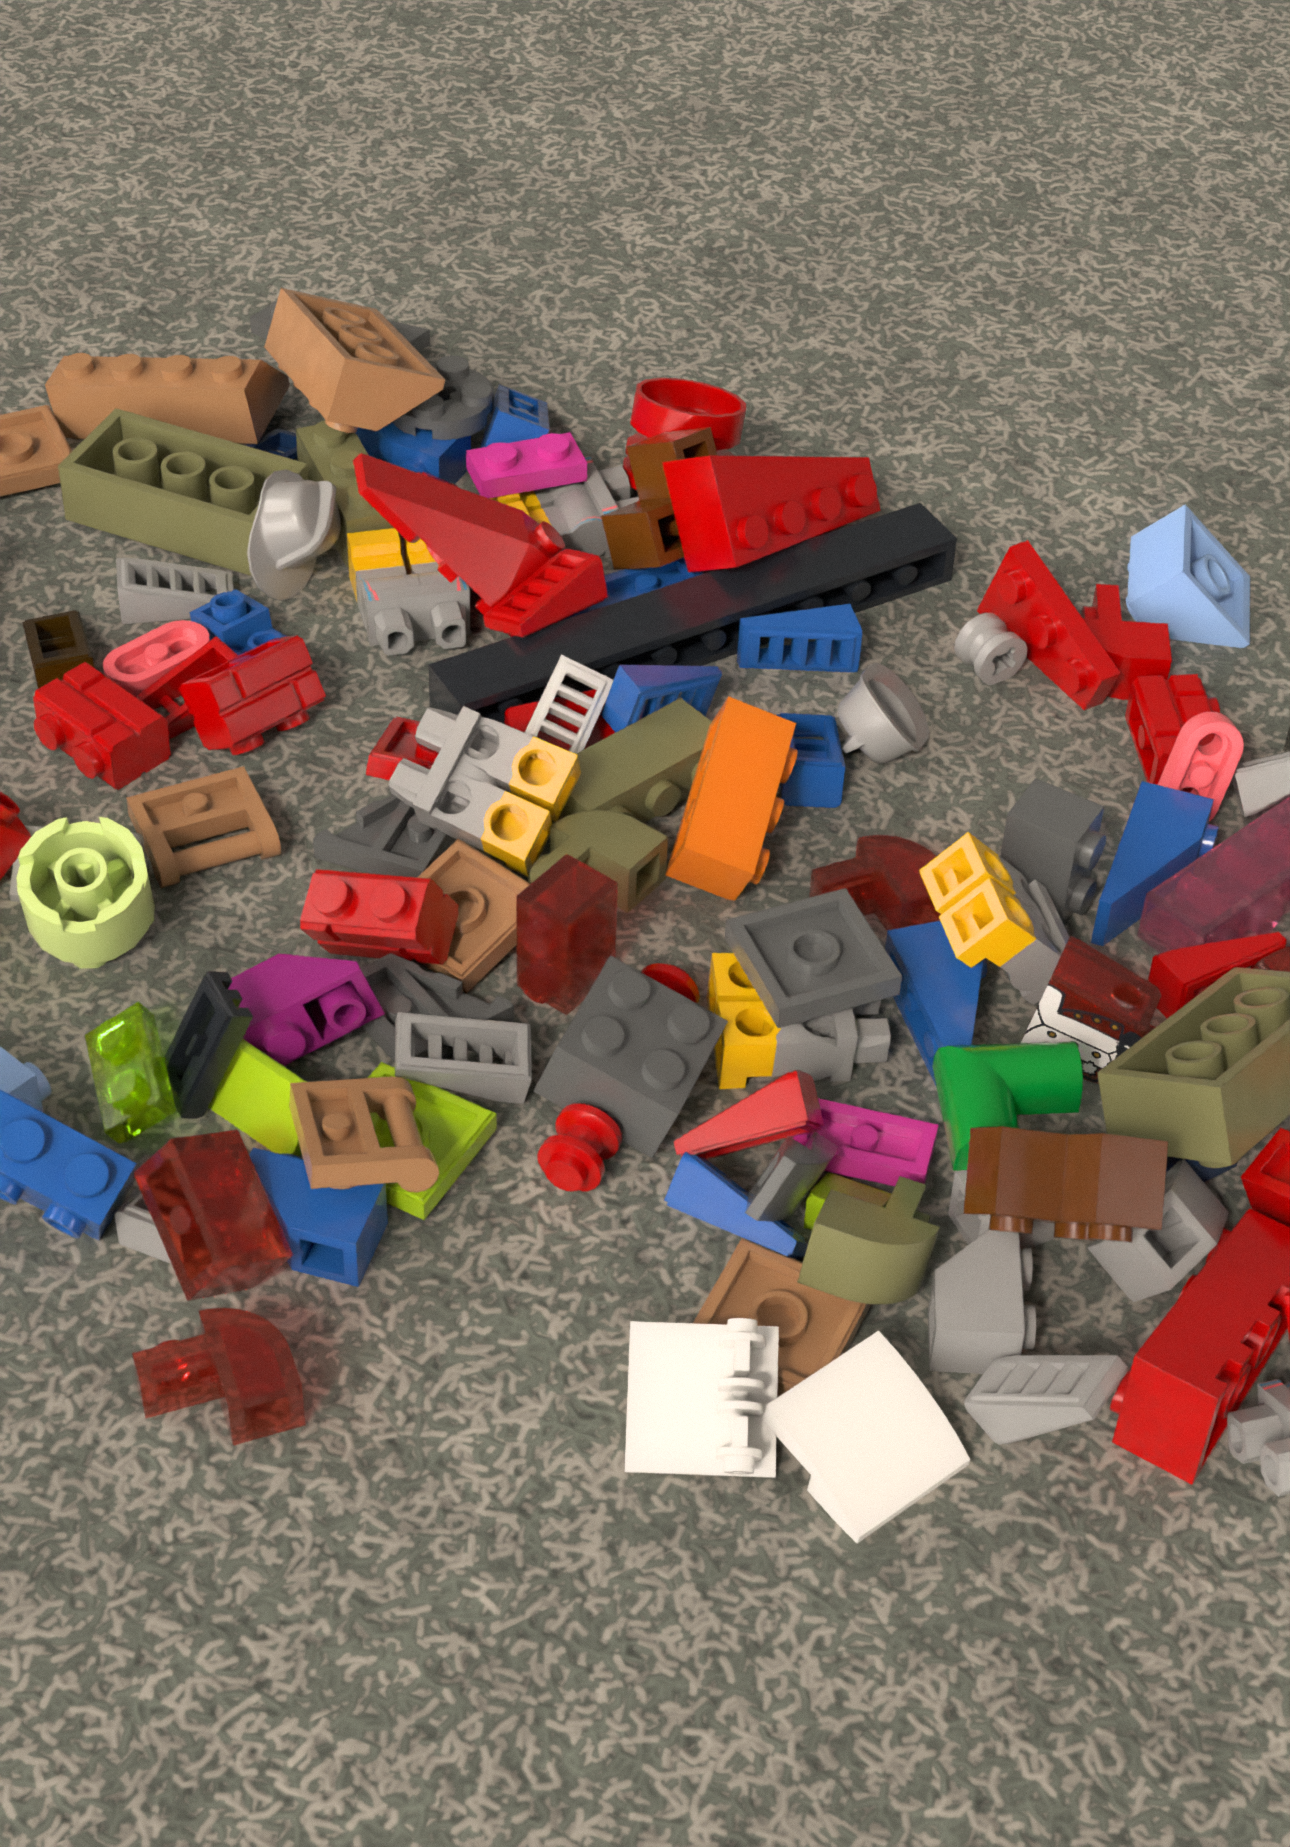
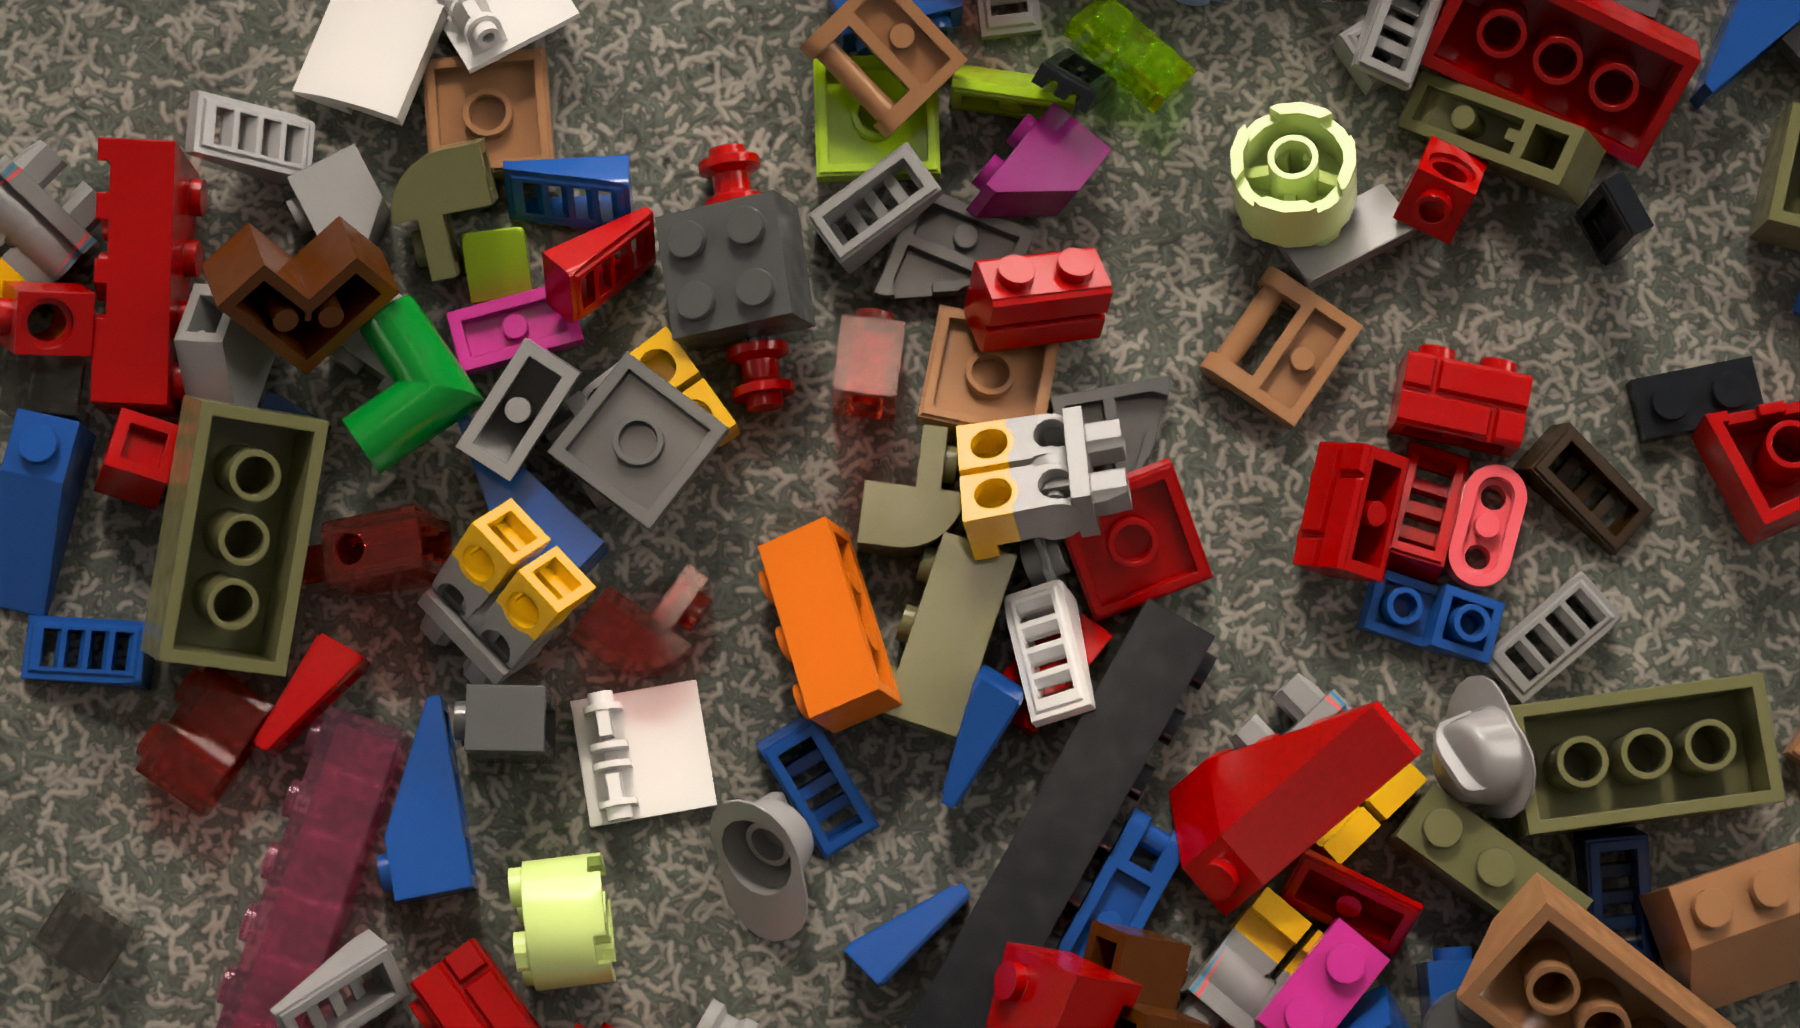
camera: 145 degrees right, 35 degrees up
(552, 593) = (1189, 798): red slope -> none
(789, 1178) = (532, 204): dark grey slope -> none
(887, 1044) = (519, 409): none -> light grey slope
(942, 815) = (643, 753): none -> white hinge
(1077, 731) = (564, 920): none -> yellowish green brick
(1204, 767) = (425, 938): coral plate -> none

